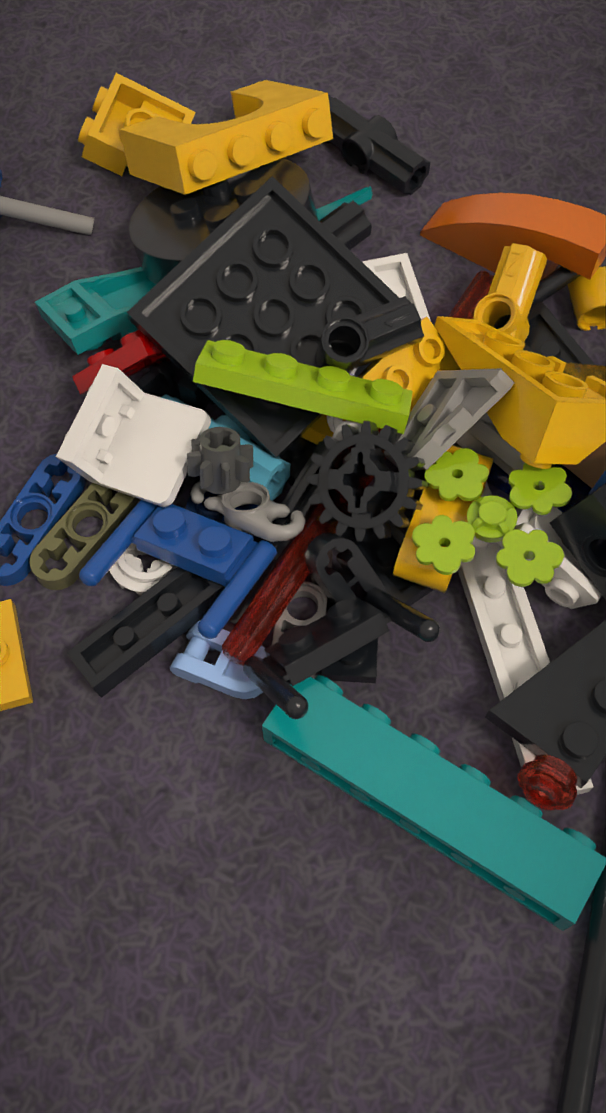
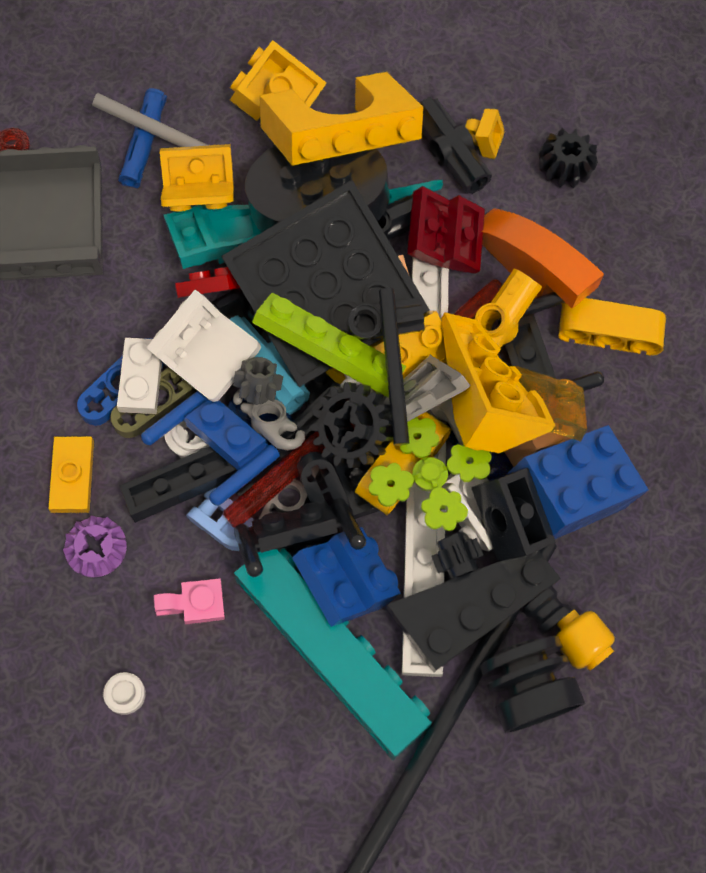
camera: 10 degrees right, 5 degrees up
(53, 771) = (90, 563): none -> medium lavender gear
(56, 505) = (139, 378): none -> white plate
(64, 244) = (197, 177): none -> yellow bracket
(151, 944) = (124, 693): none -> white tile
(220, 782) = (199, 602): none -> bright pink plate
(399, 233) = (446, 231): none -> dark red slope
(403, 389) = (394, 367): none -> black bar
(407, 119) = (487, 132): none -> yellow tile
(419, 690) = (347, 579): none -> blue plate
(513, 125) = (568, 158): none -> black gear
(548, 783) = (409, 663): clear red plate -> none
(560, 618) = (457, 555): none -> black gear

